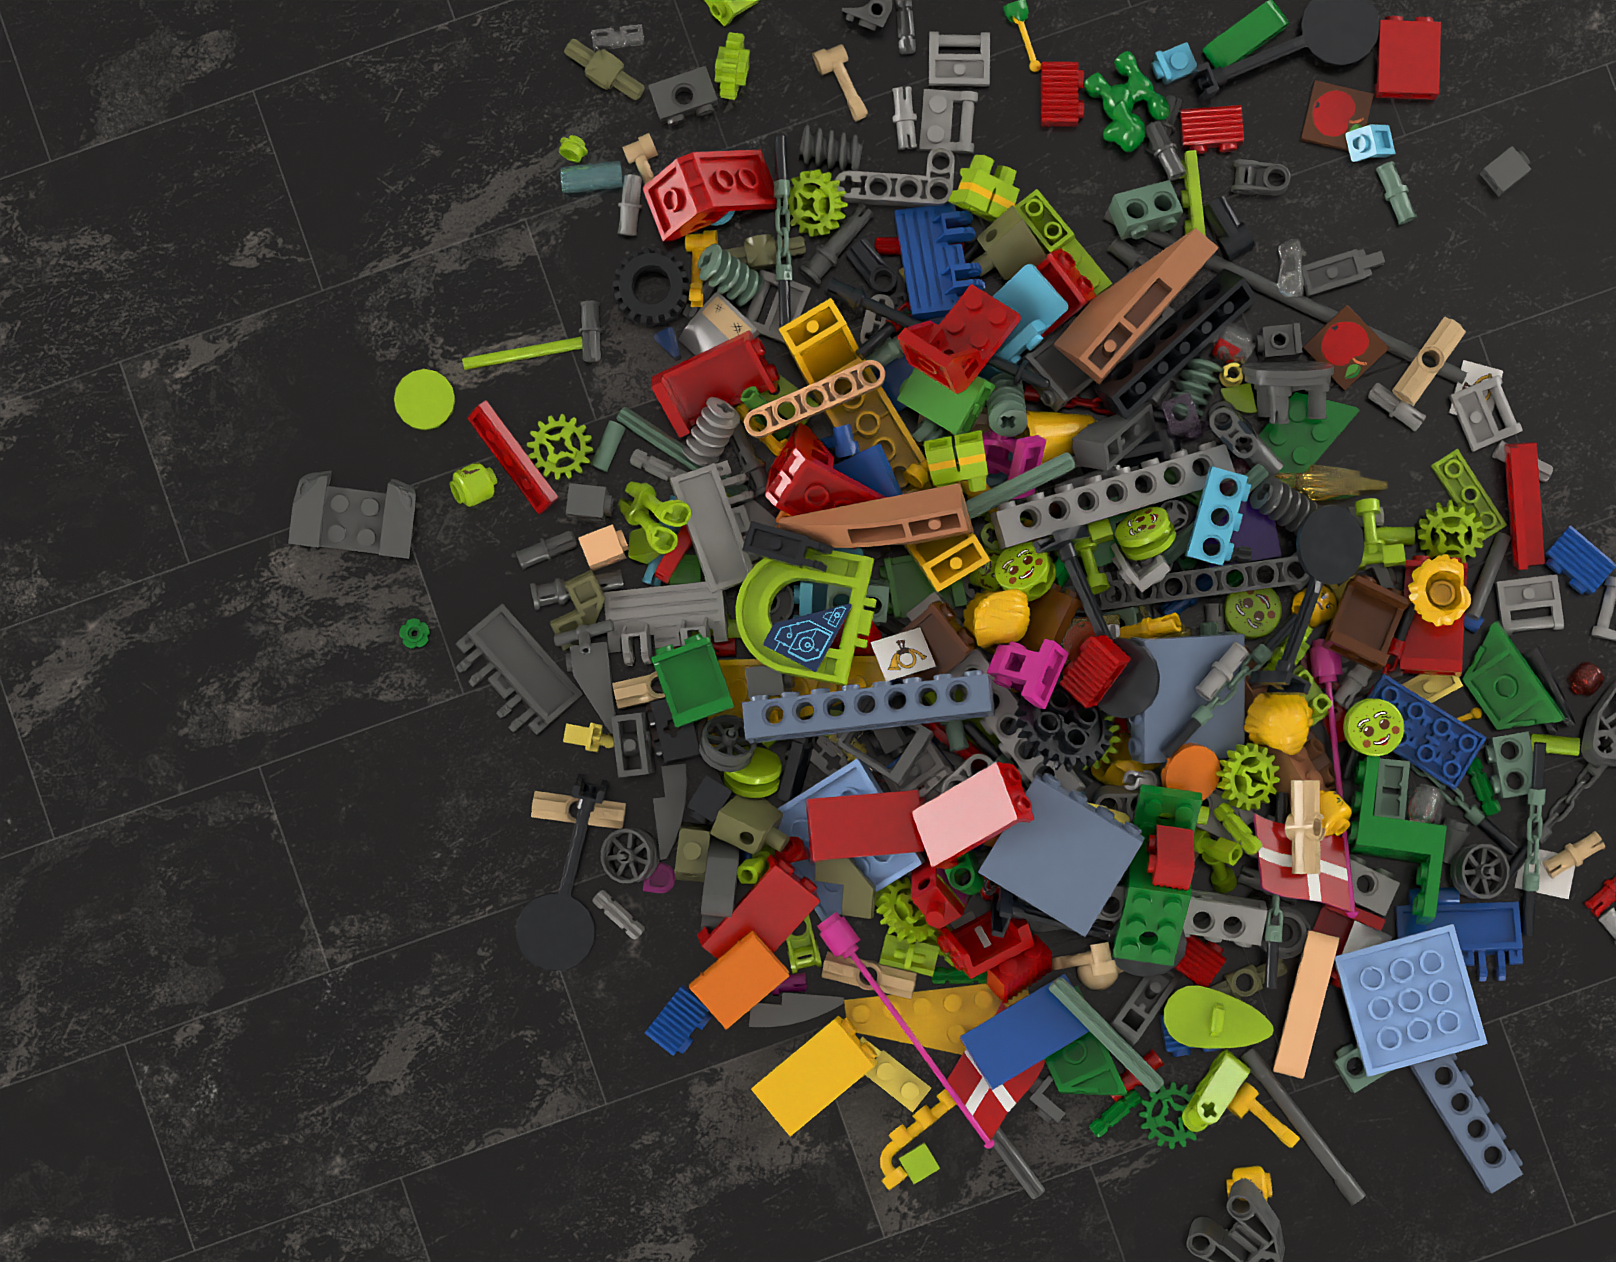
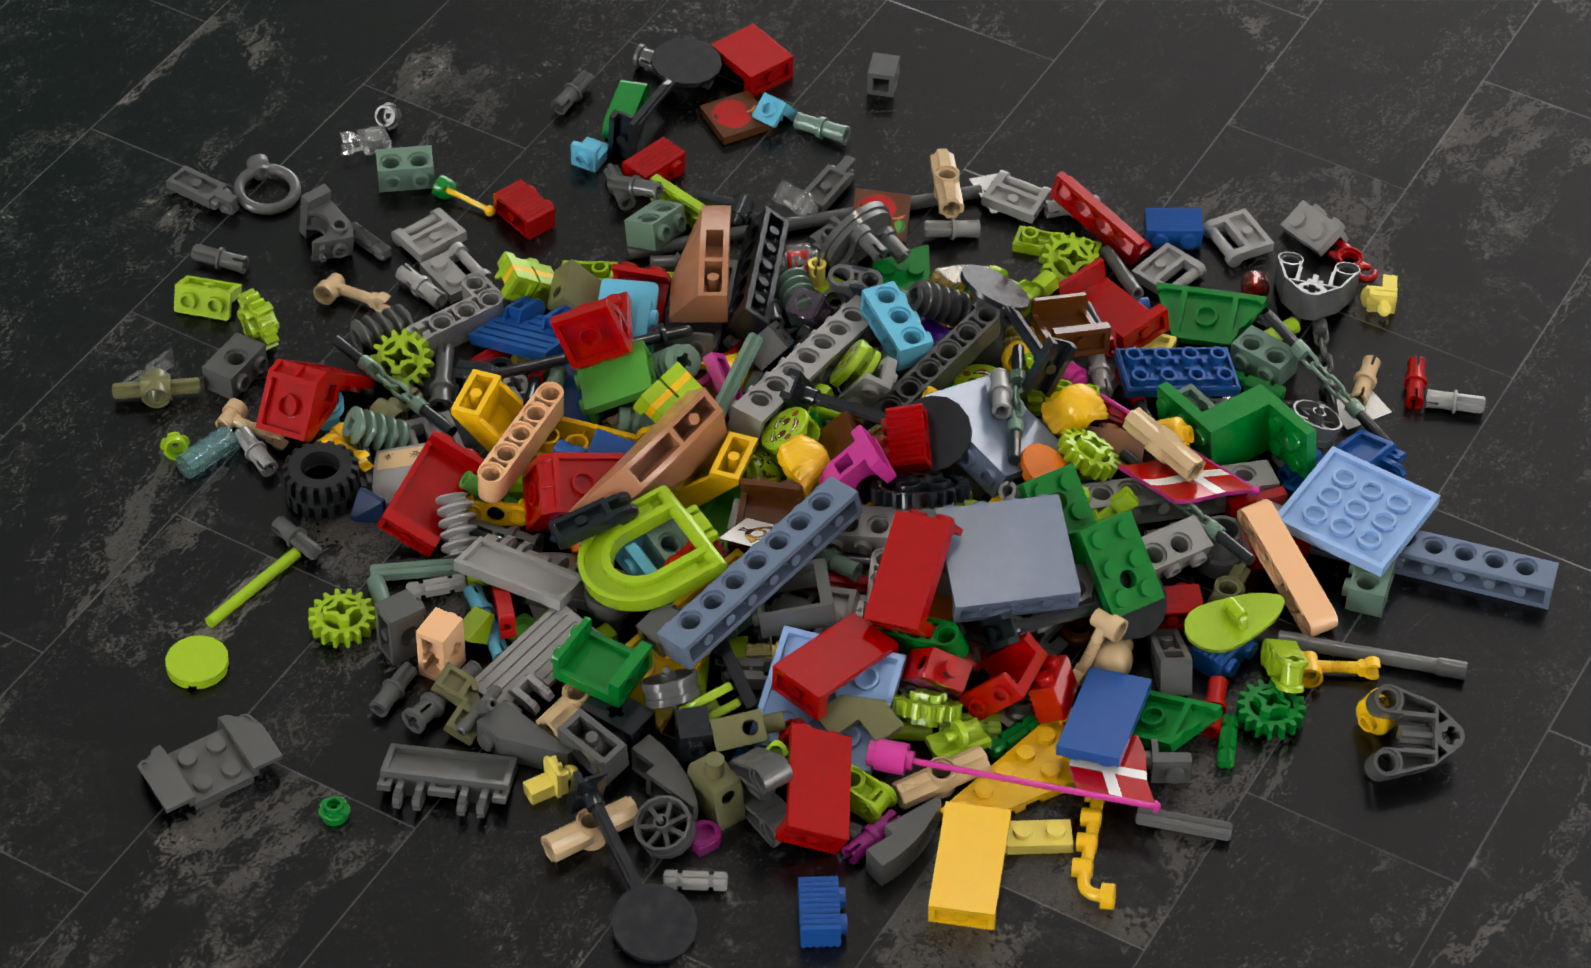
camera: 45 degrees left, 40 degrees down
(473, 484) = (291, 682): lime head -> none
(512, 457) = (308, 647): red tile -> none
(670, 512) = (466, 588): lime piece -> none
(739, 979) = (841, 828): orange piece -> none
(808, 636) = (666, 559): dark blue sticker -> none
(919, 1163) = (1115, 871): lime slope -> none
(1106, 1034) = (1164, 676): sand green axle -> none
(1118, 102) = (575, 181): green animal -> none
(1171, 857) = (1091, 507): red brick -> none
(1237, 828) = (1116, 481): lime axle -> none
(1257, 178) = (720, 170): dark grey piece -> none
(1373, 727) = (1142, 369): lime head -> none
(1439, 590) = (1093, 277): yellow hair -> none

